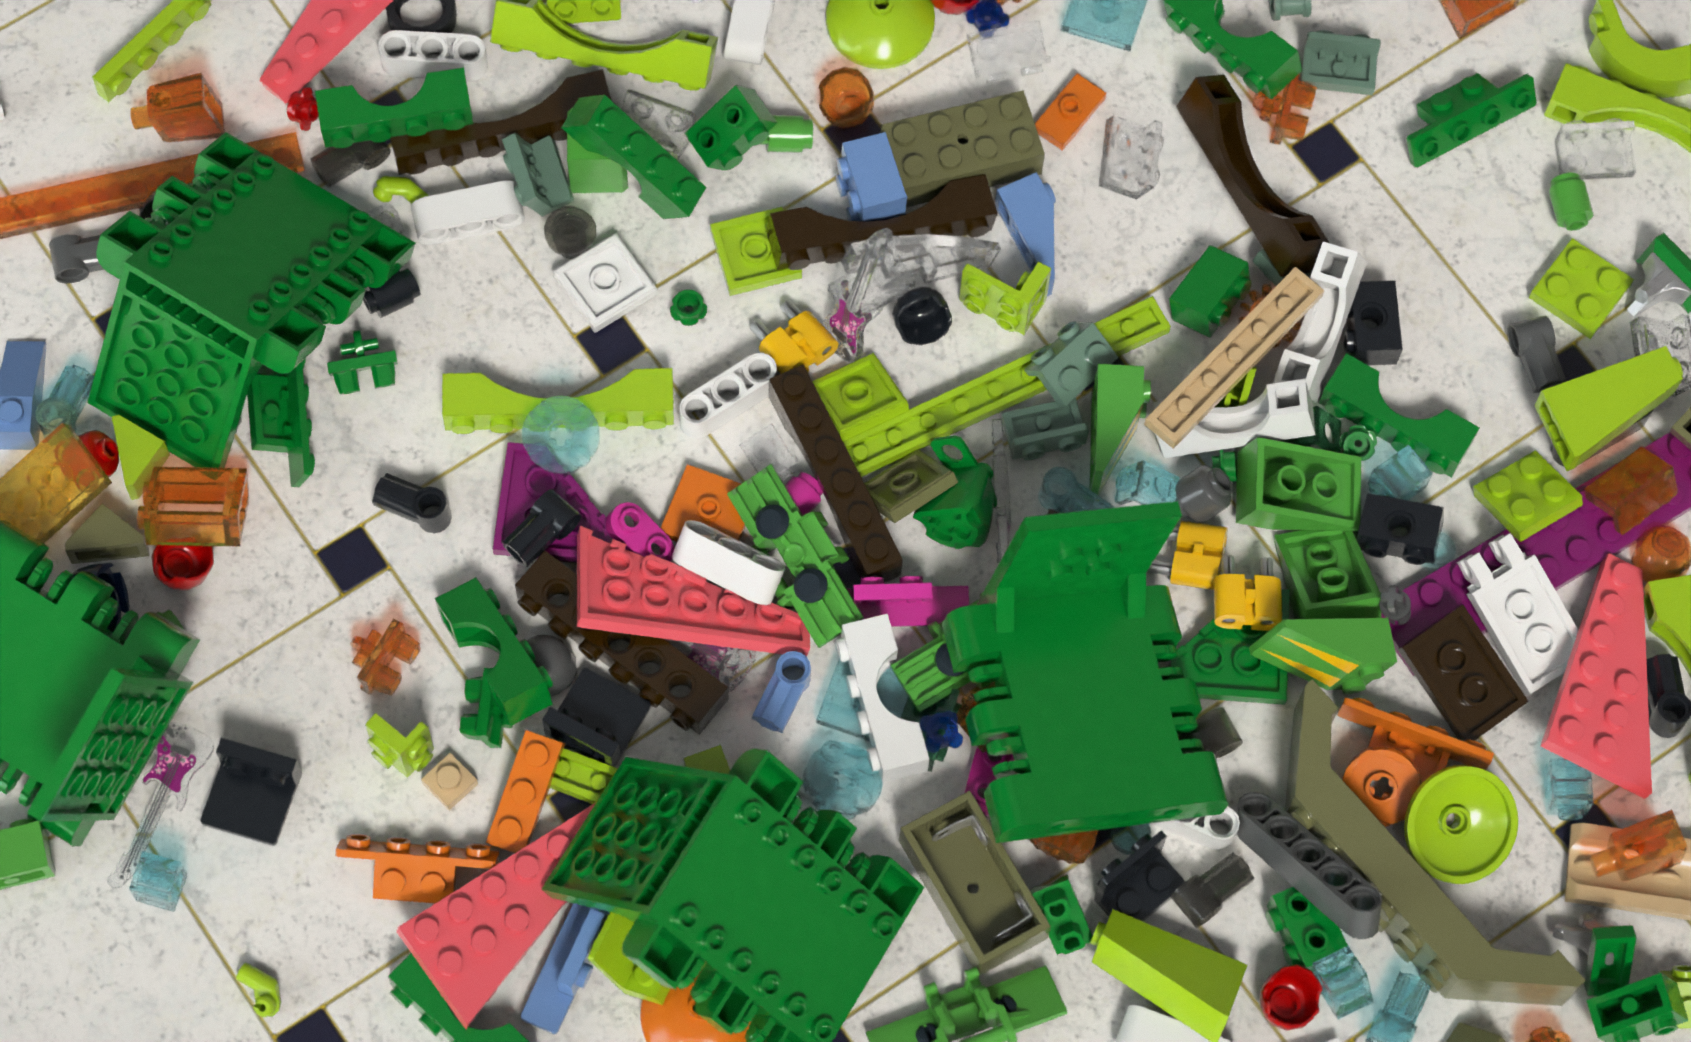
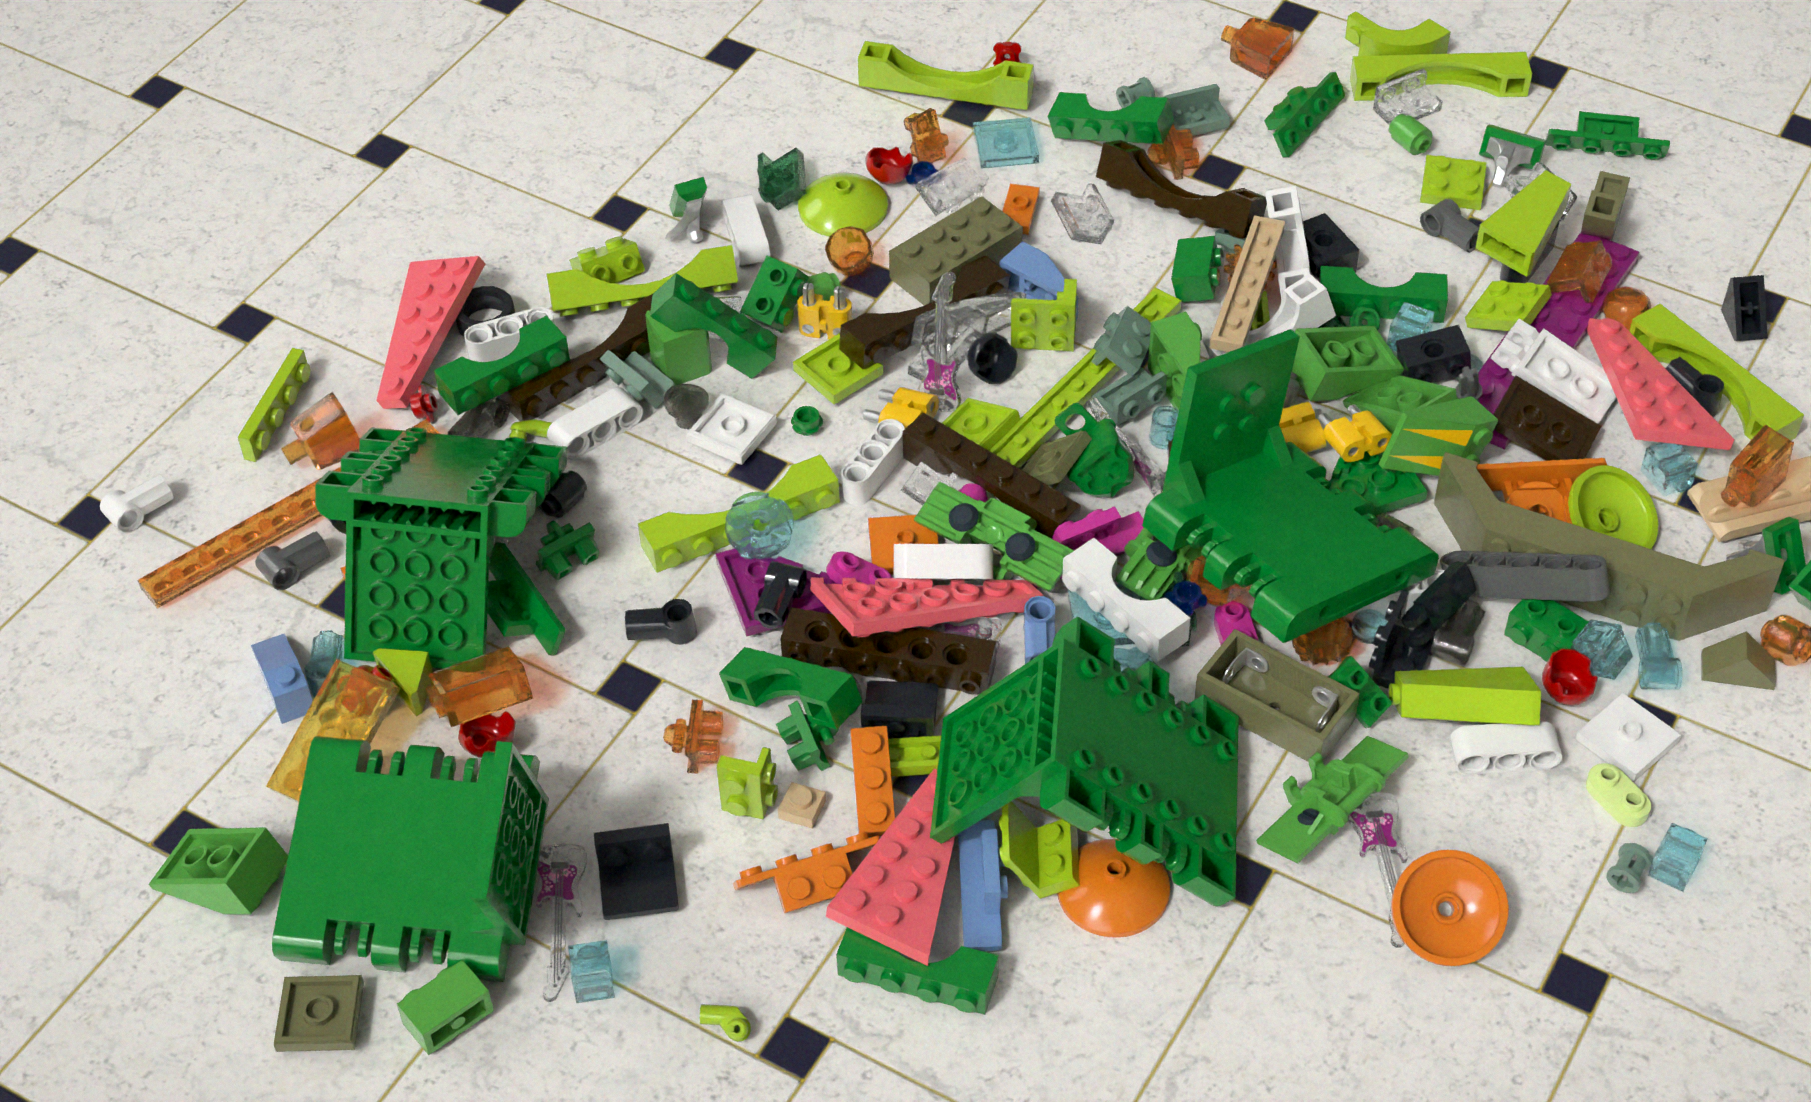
camera: 20 degrees left, 20 degrees down
(105, 538) = (413, 731): olive slope -> none
(768, 176) = (822, 316): none -> yellow piece
(870, 180) = (901, 281): medium blue brick -> none
(1201, 853) = (1439, 603): none -> black hinge

